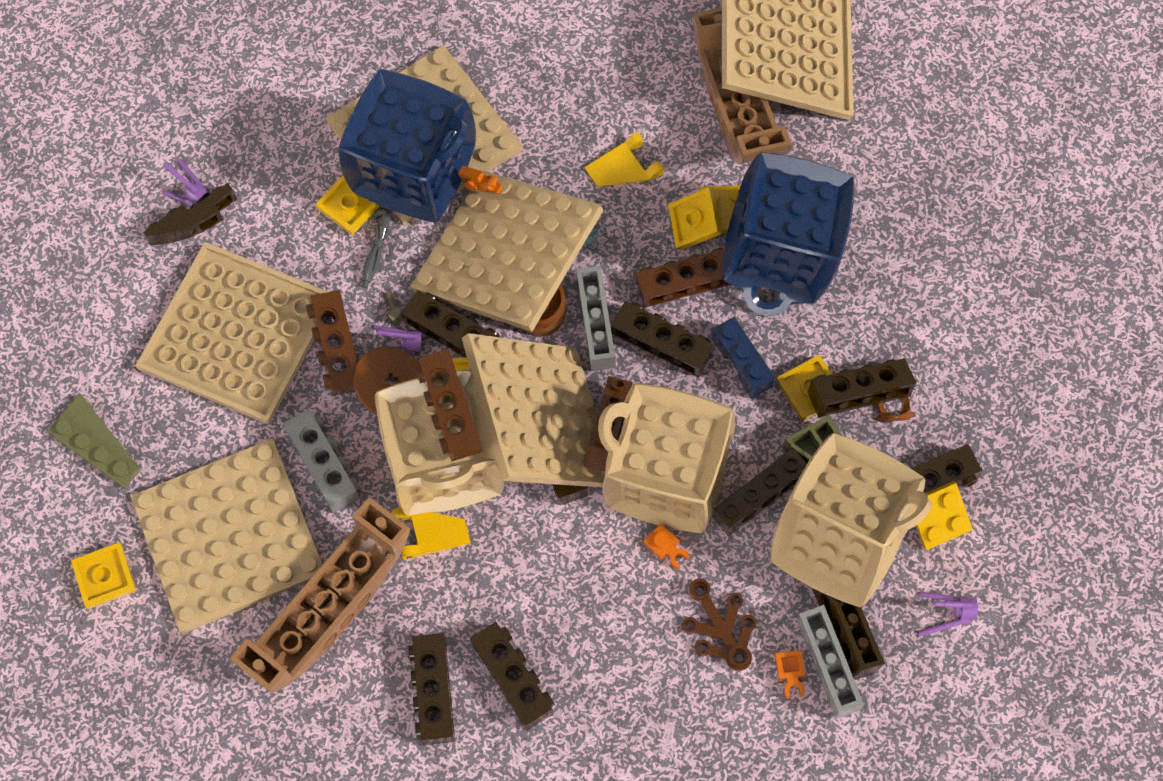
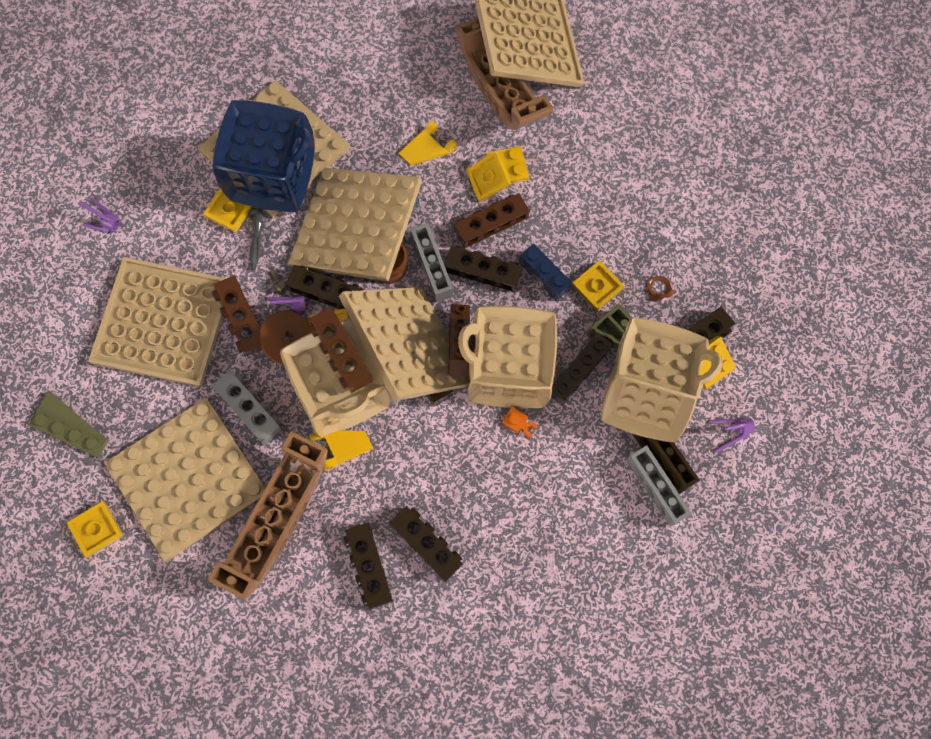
camera: 20 degrees left, 5 degrees up
(185, 223) = (104, 246): dark brown slope -> none
(476, 180) = (322, 175): orange plate -> none
(721, 629) = (573, 476): reddish brown plant -> none
(787, 230) = (561, 171): dark blue piece -> none
(791, 668) = (630, 496): orange plate -> none
(873, 390) = (636, 278): dark brown brick -> none

